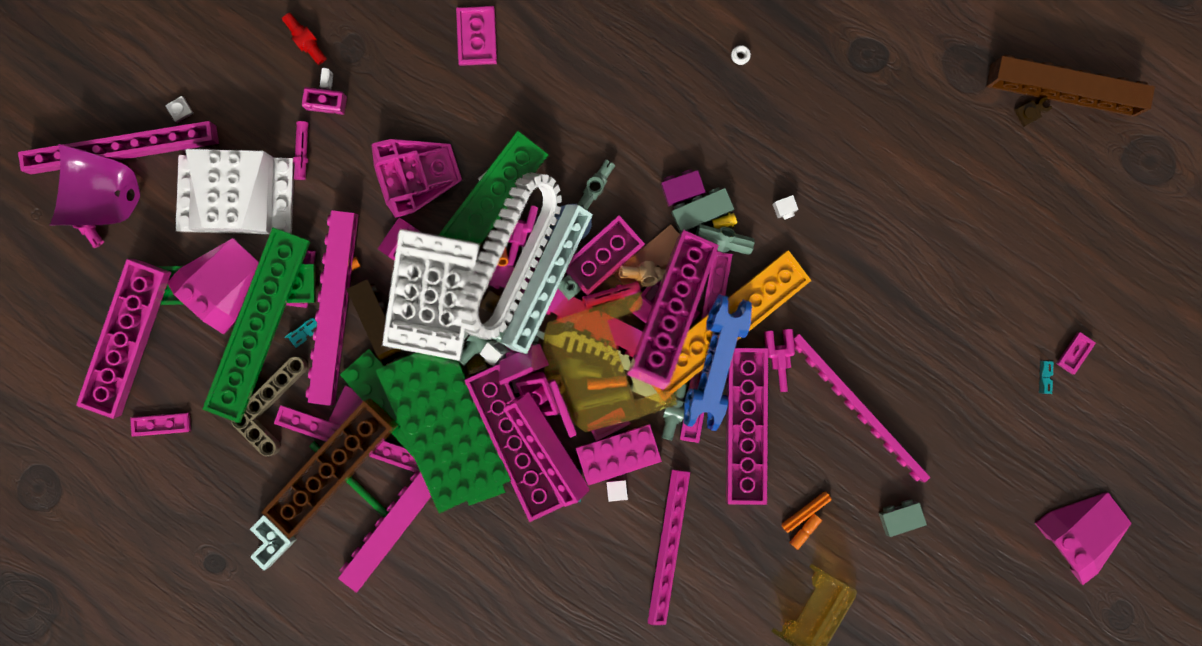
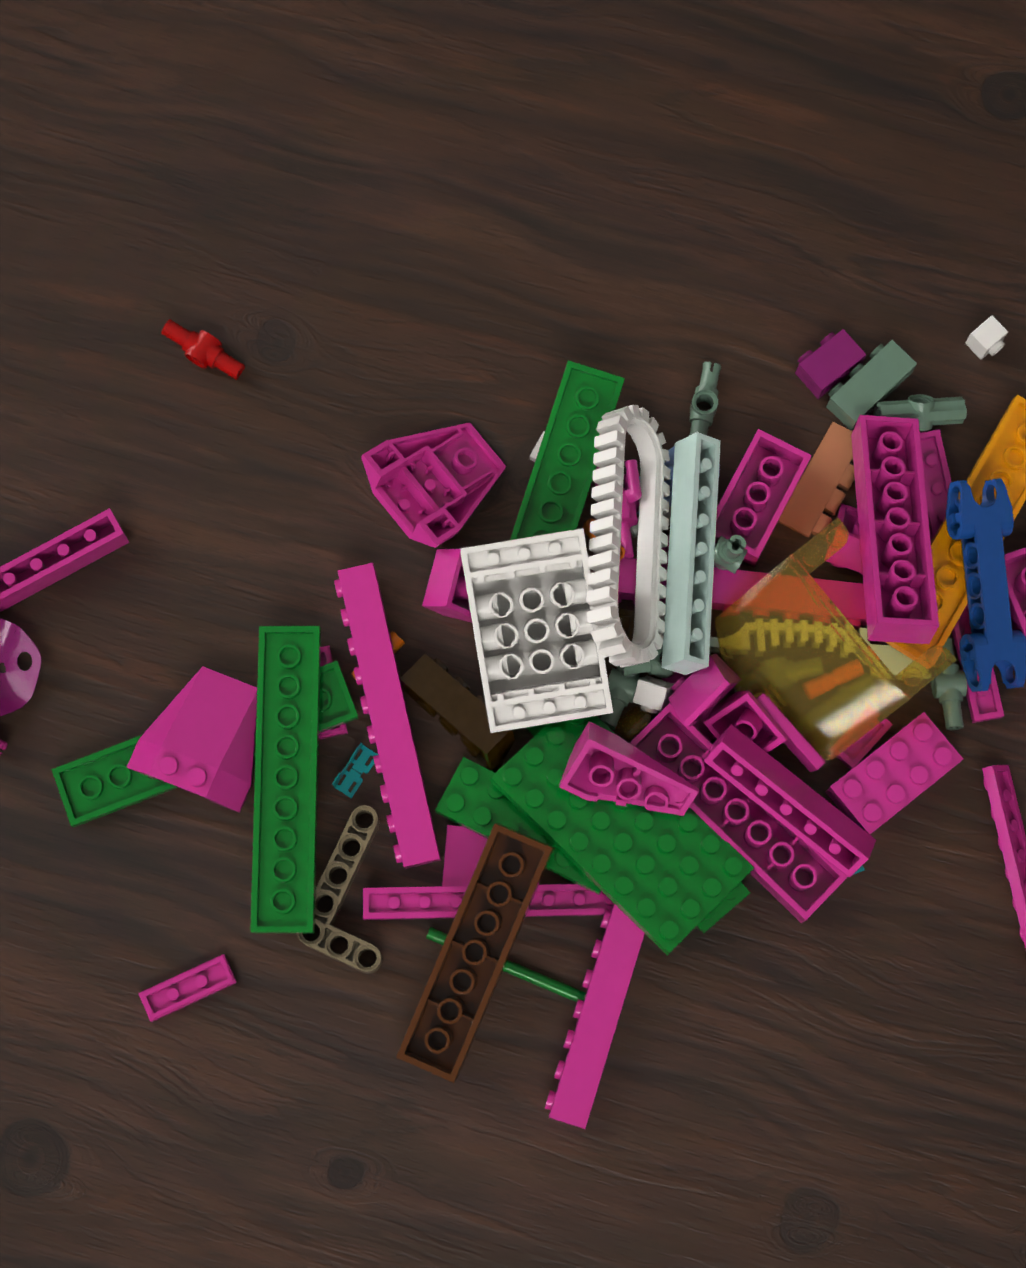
camera: 20 degrees left, 10 degrees down
(123, 338) = (91, 872): dark pink brick -> none
(179, 109) = (53, 513): white plate -> none
(234, 192) = (176, 601): white wedge -> none
(273, 545) = (432, 1096): light aqua brick -> none
(301, 150) = (259, 519): dark pink pin -> none
(324, 100) = (266, 423): dark pink brick -> none
(326, 79) = (257, 394): white tile -> none
(449, 393) = (617, 771): none -> dark pink wedge
(476, 35) = (450, 260): dark pink tile -> none
(611, 294) = (780, 552): dark pink pin -> none
(617, 490) = (912, 832): white tile -> none
(644, 272) = (825, 497): tan pin -> none
(725, 221) = (915, 384): yellow pin -> none
(740, 49) = (835, 147): white plate -> none

